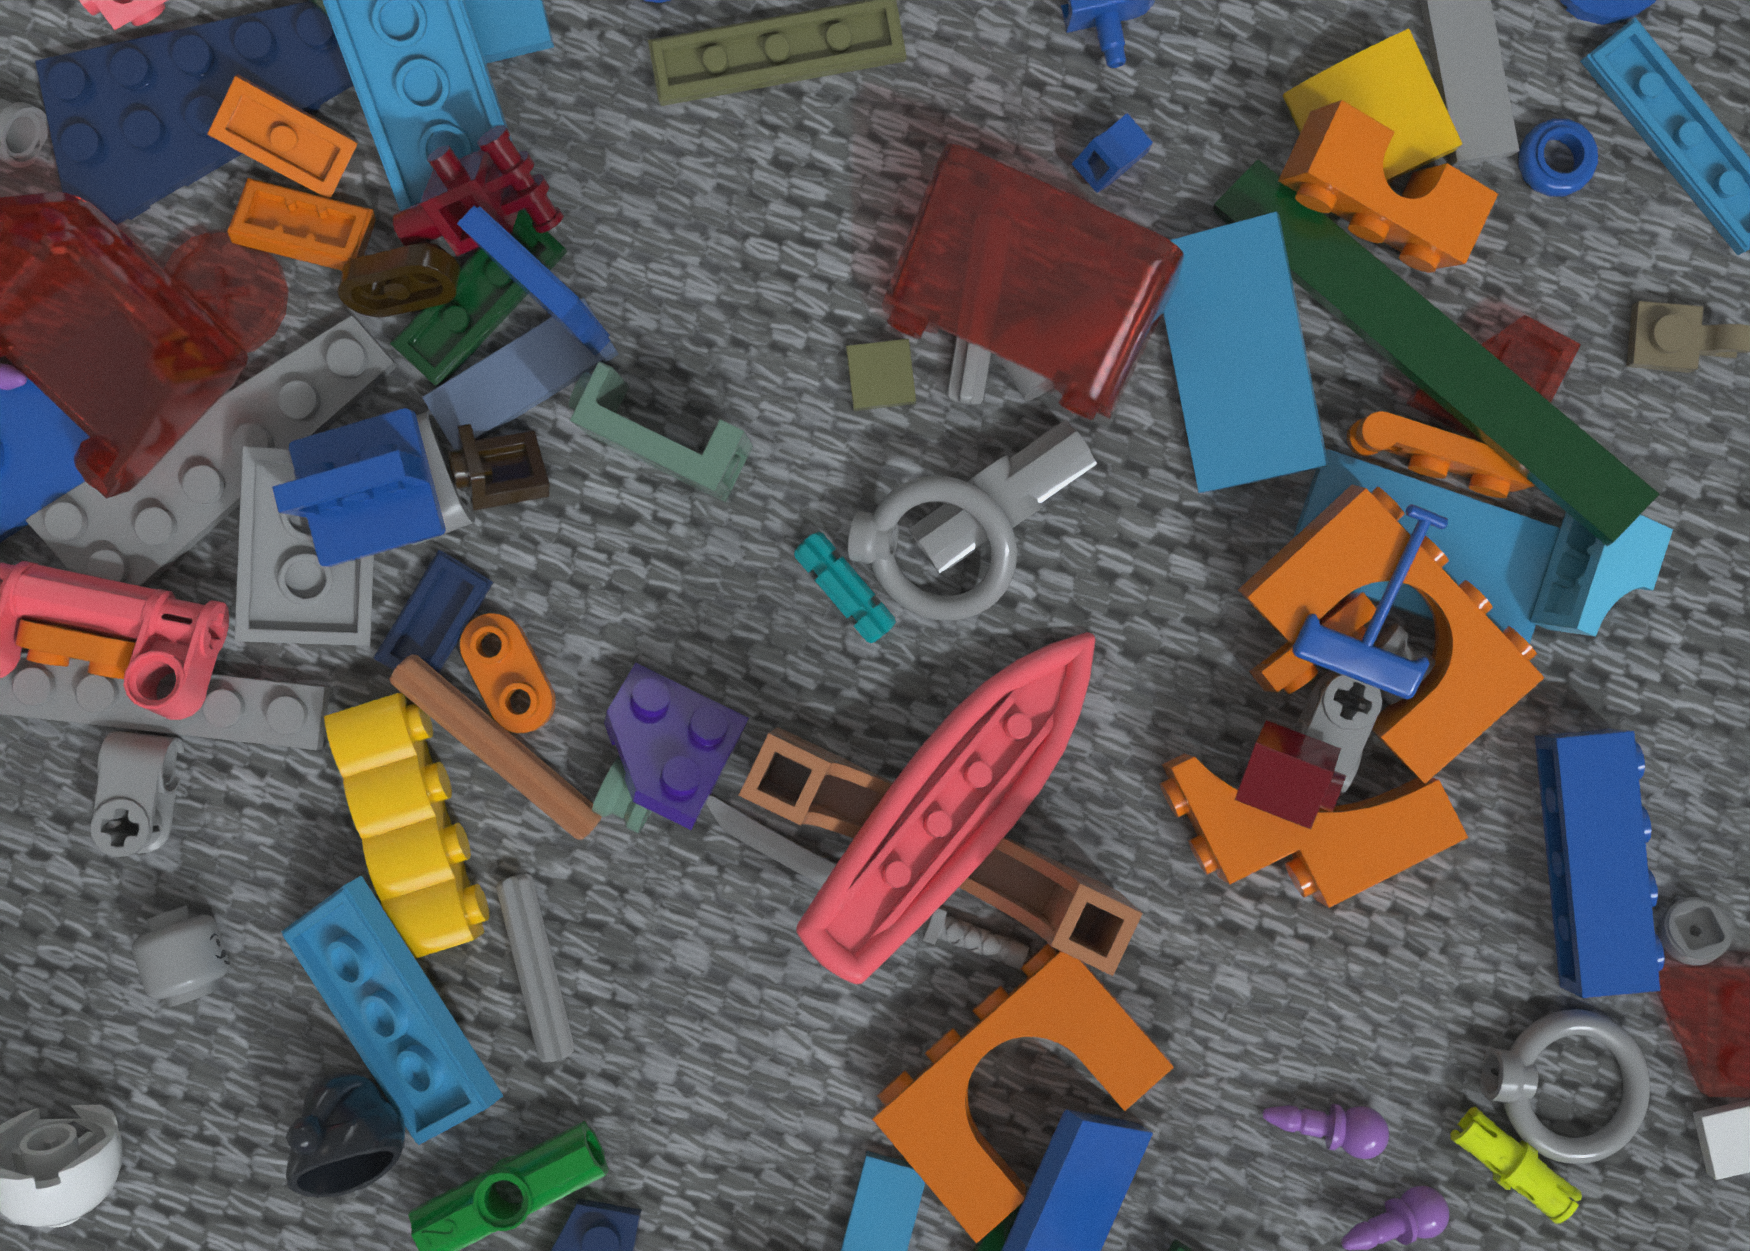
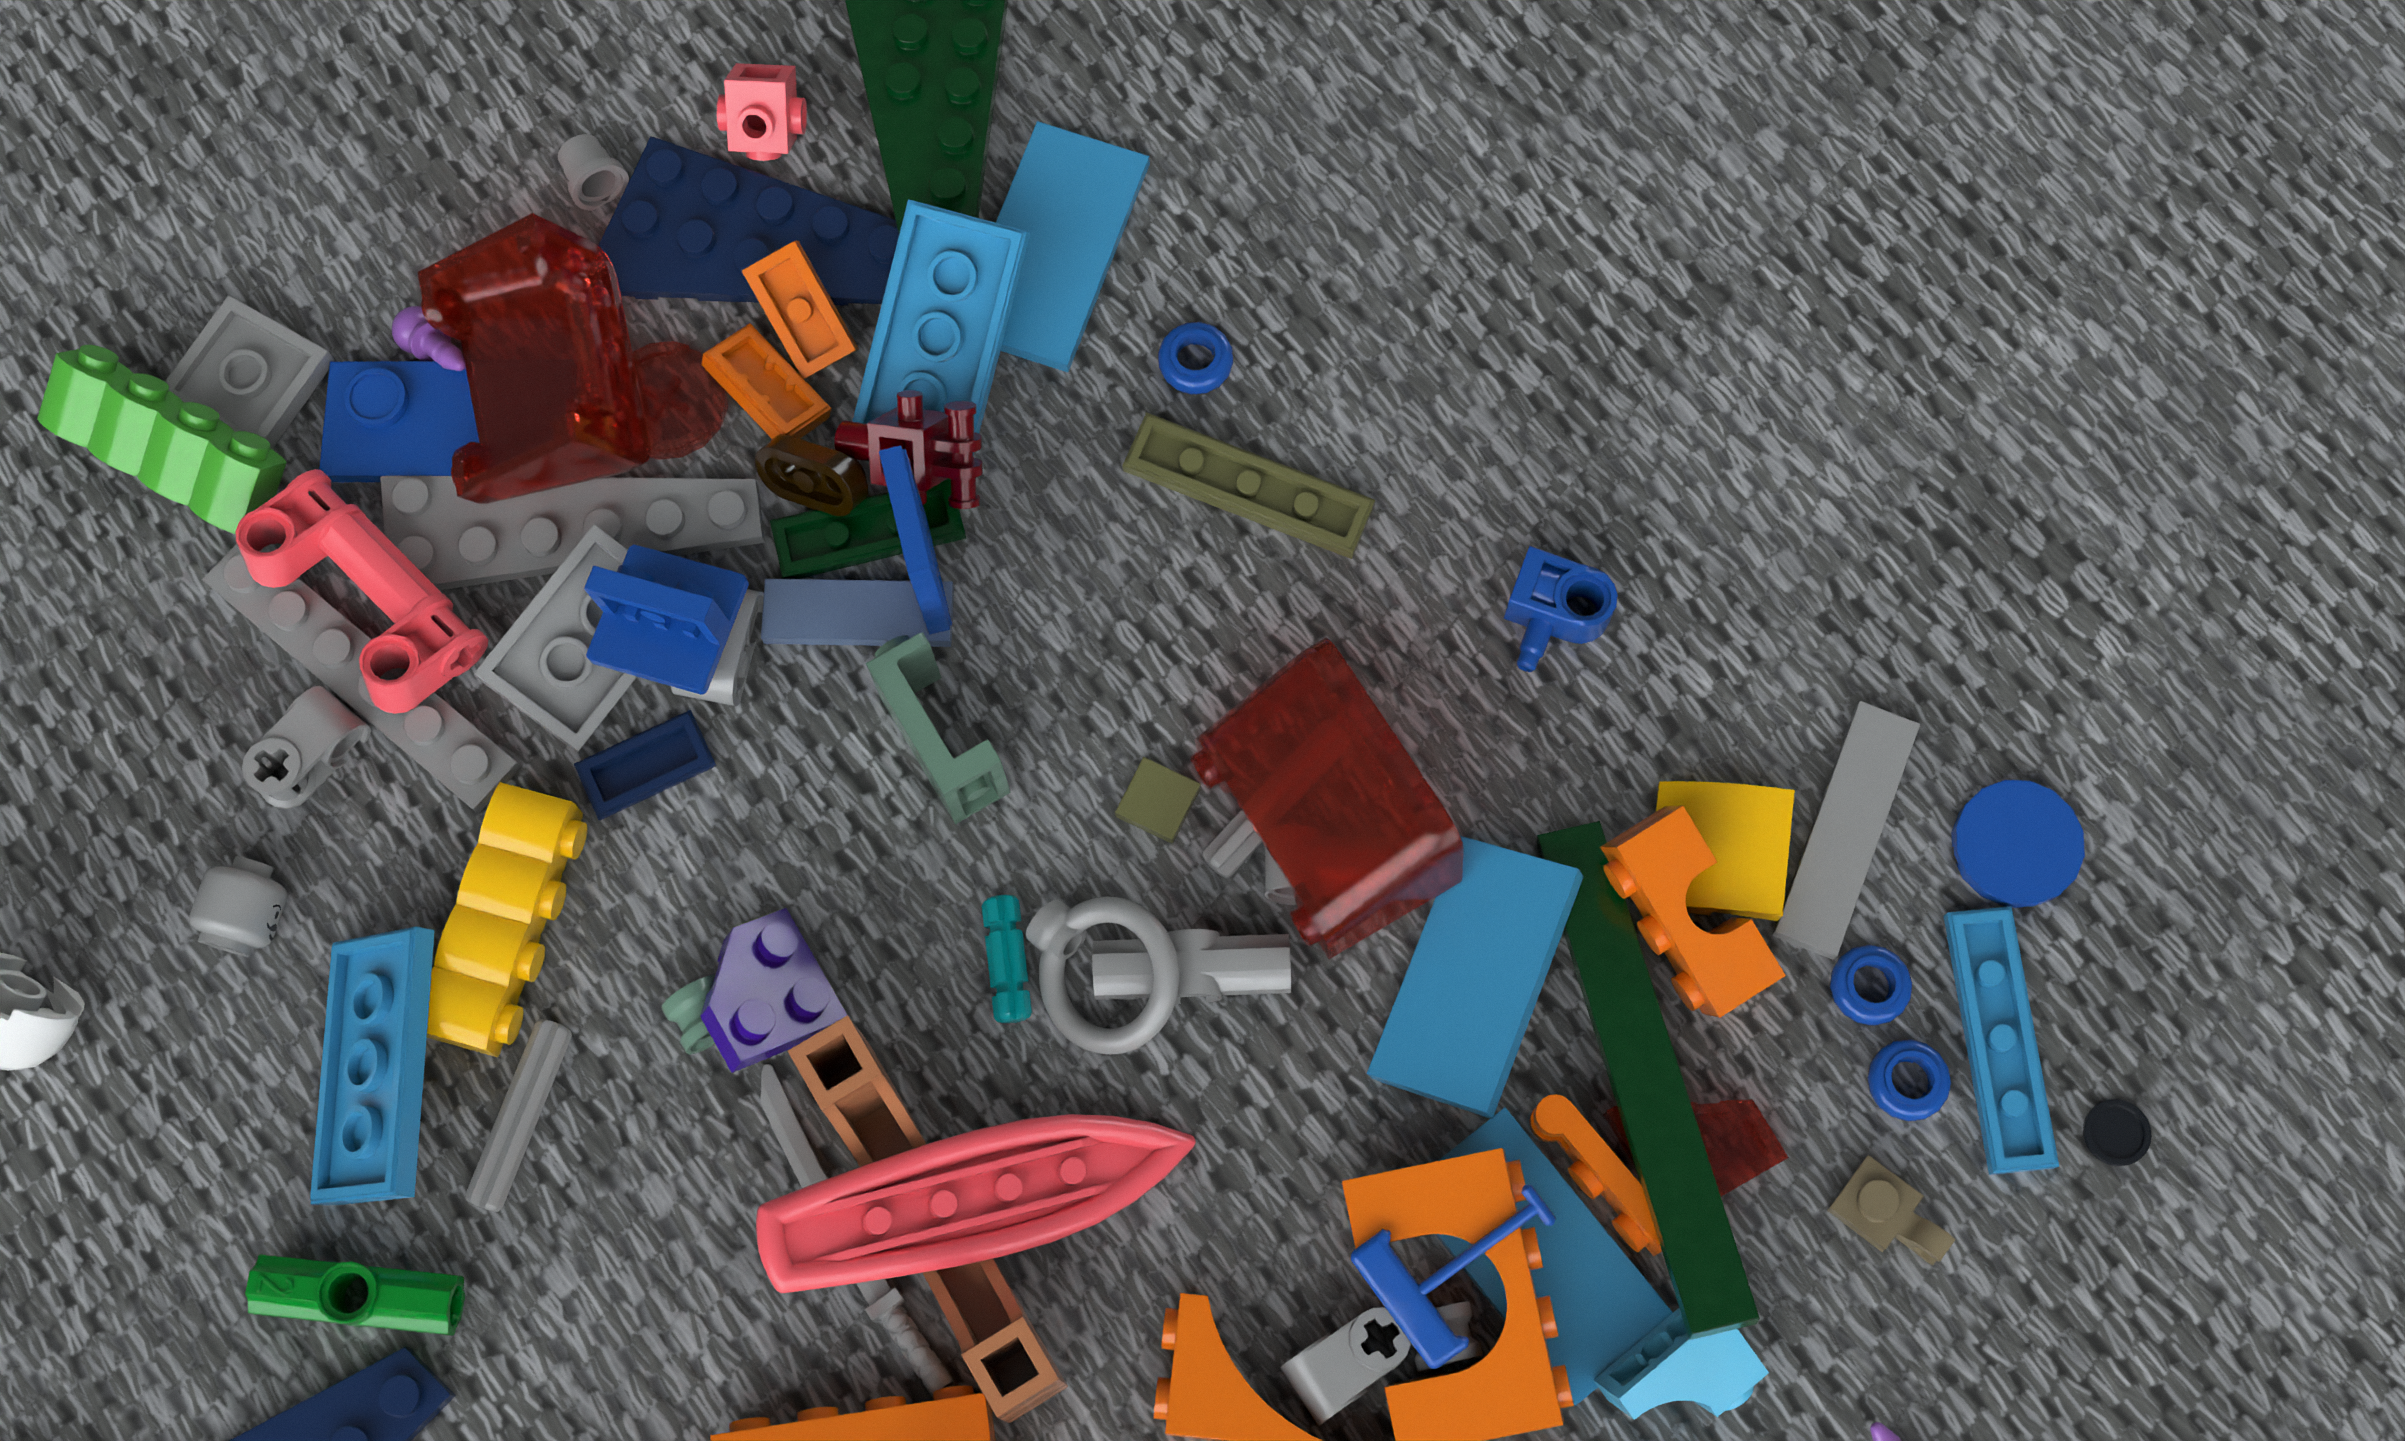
camera: 30 degrees right, 15 degrees down
(57, 644) = (332, 586): orange plate -> none
(342, 1138) = (254, 1148): black piece -> none
(495, 746) = (620, 903): nougat axle -> none
(498, 468) = (785, 674): dark brown bracket -> none
(508, 671) = (676, 847): orange plate -> none
(1112, 153) = (1474, 739): blue piece -> none
(1291, 673) = (1349, 1285): orange plate -> none
(1291, 775) = (1278, 1363): dark red brick -> none
(1609, 224) = (1890, 1099): none -> blue piece

